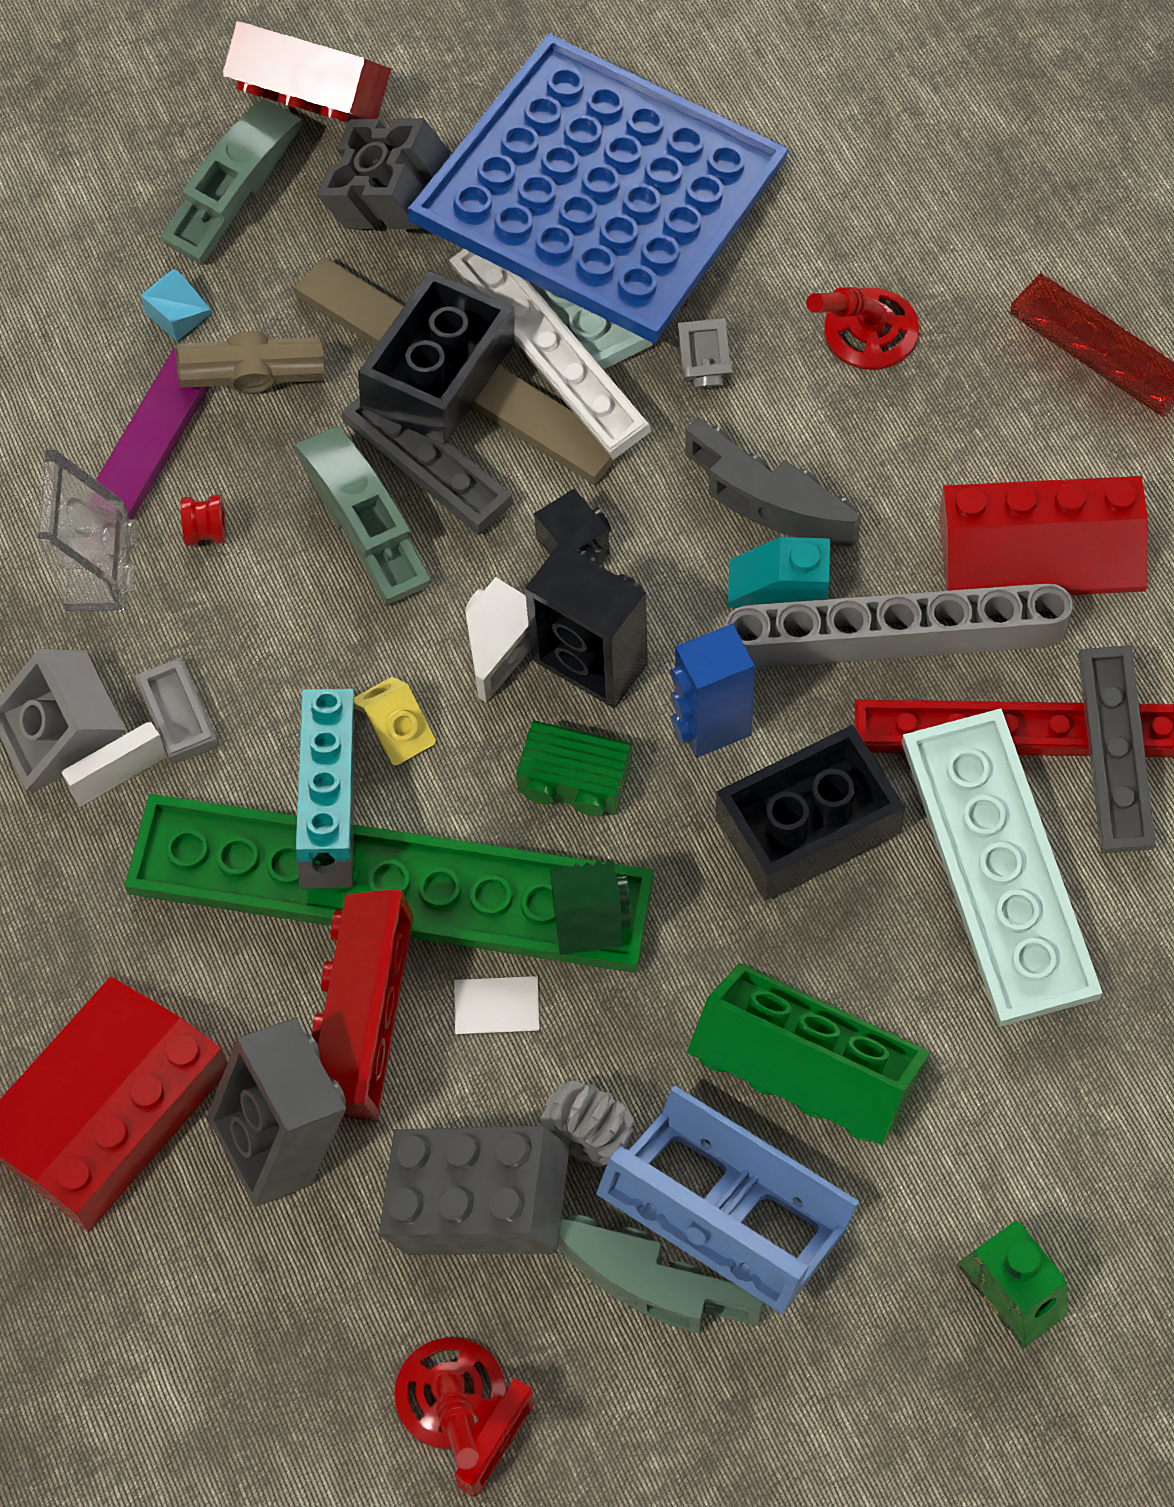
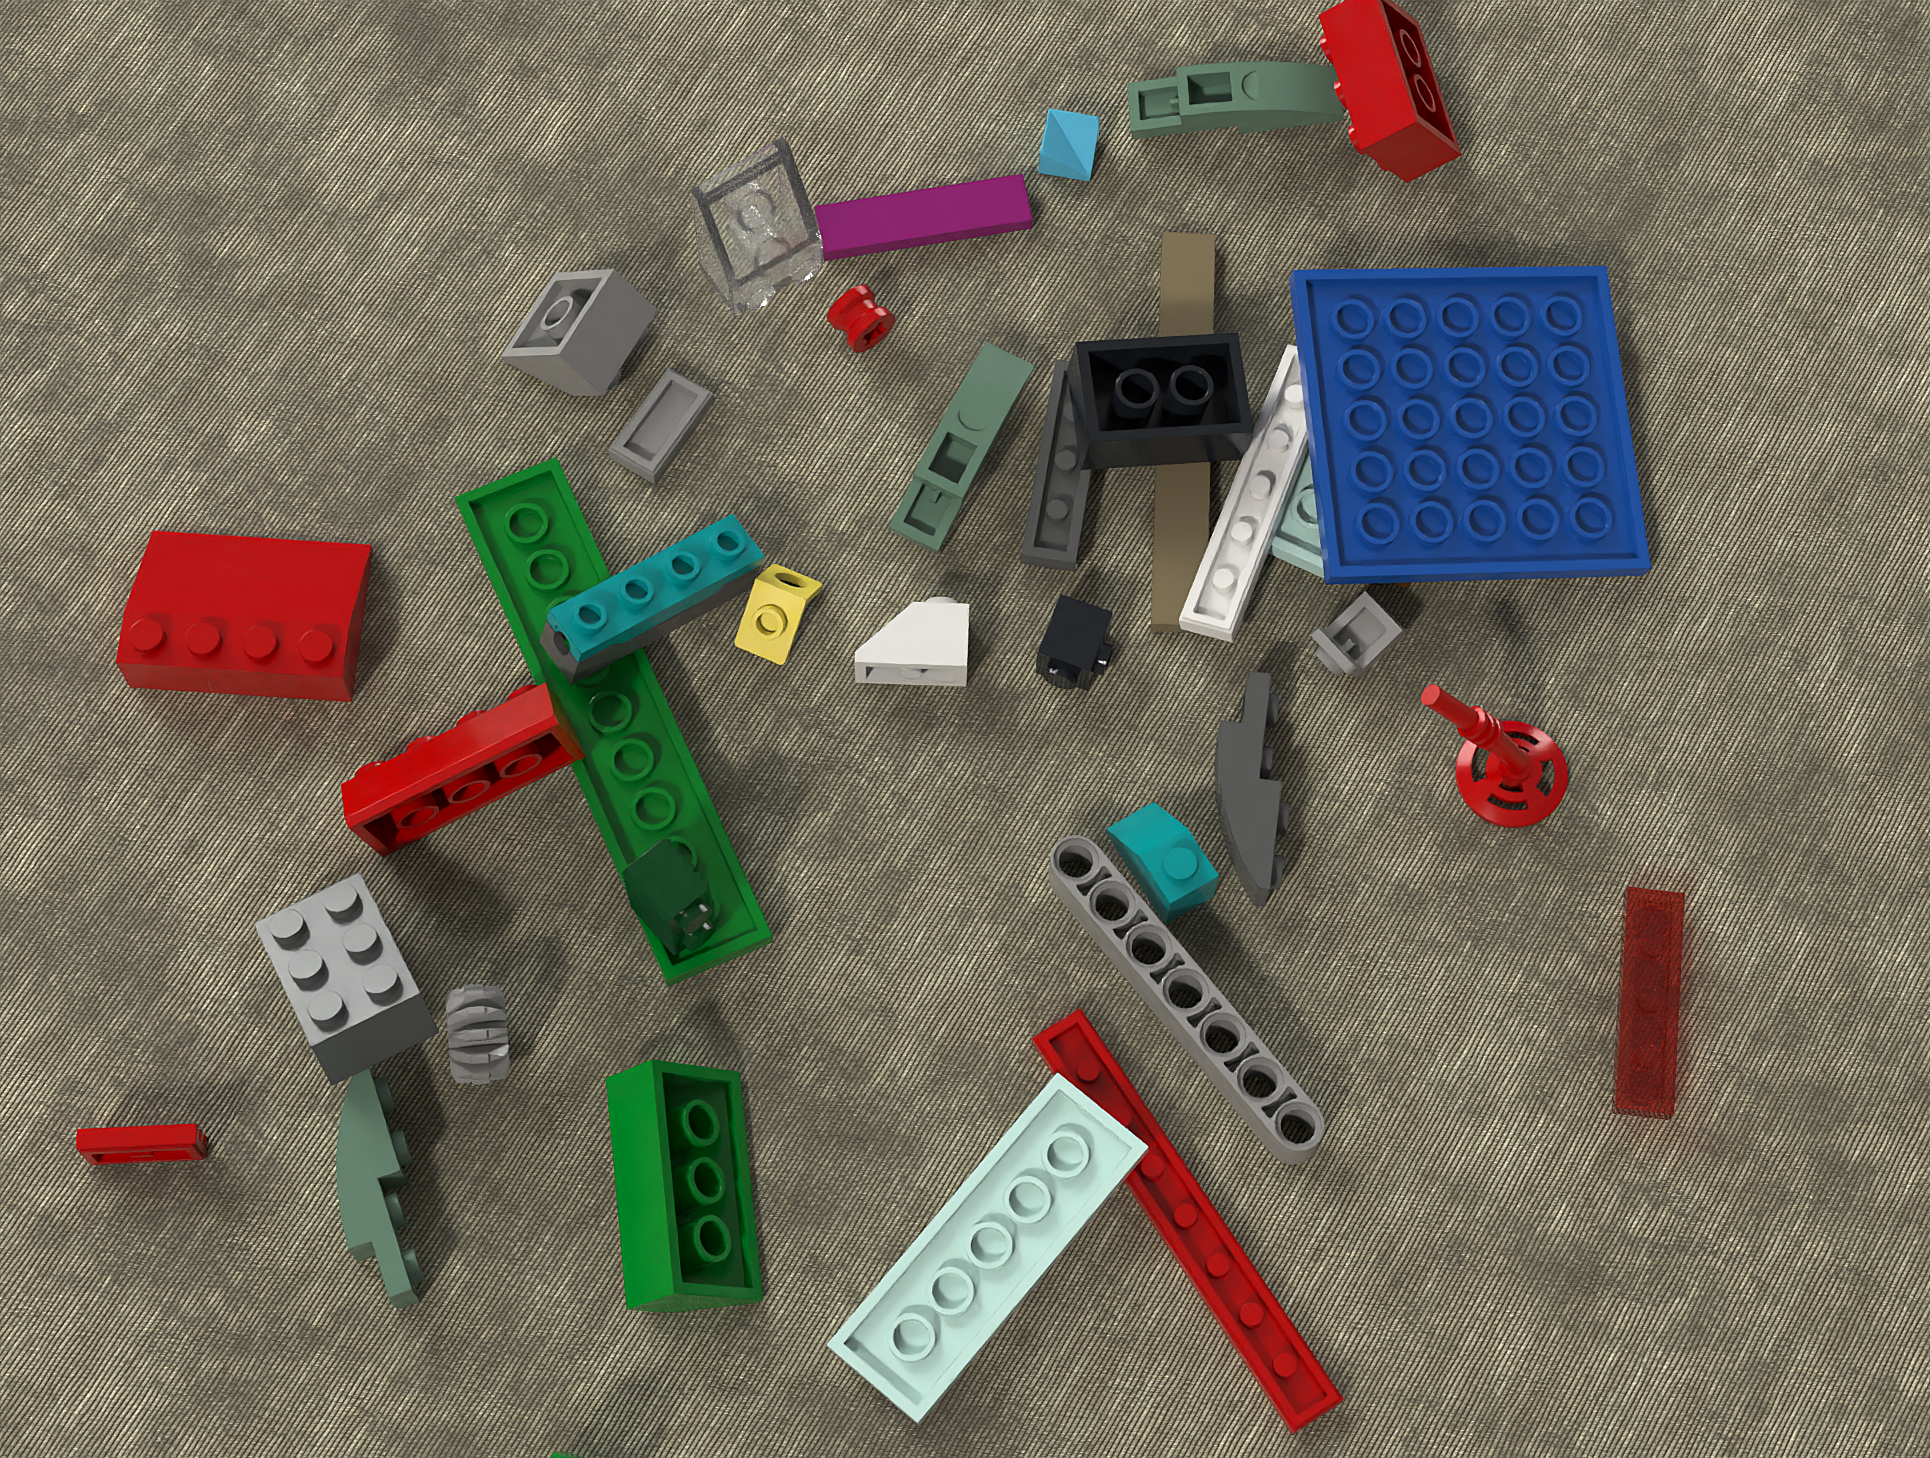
camera: 50 degrees right, 5 degrees up
(114, 763) = (566, 408): white tile -> none
(249, 362) = (1048, 246): dark tan piece -> none
(276, 1111) = (304, 761): dark grey brick -> none
(381, 172) = (1332, 219): dark grey brick -> none
(453, 1405) = (157, 1082): red dish -> none
(496, 1005) = (559, 885): white sticker -> none
(573, 768) = (829, 799): green brick -> none
(587, 624) = (966, 714): black brick -> none
(712, 691) = (970, 868): blue brick -> none
(713, 1226) = (439, 1203): medium blue window -> none
(809, 812) = (921, 1036): black brick -> none
(1057, 532) = (1379, 1079): red slope -> none
(1116, 749) = (1186, 1283): dark grey plate -> none

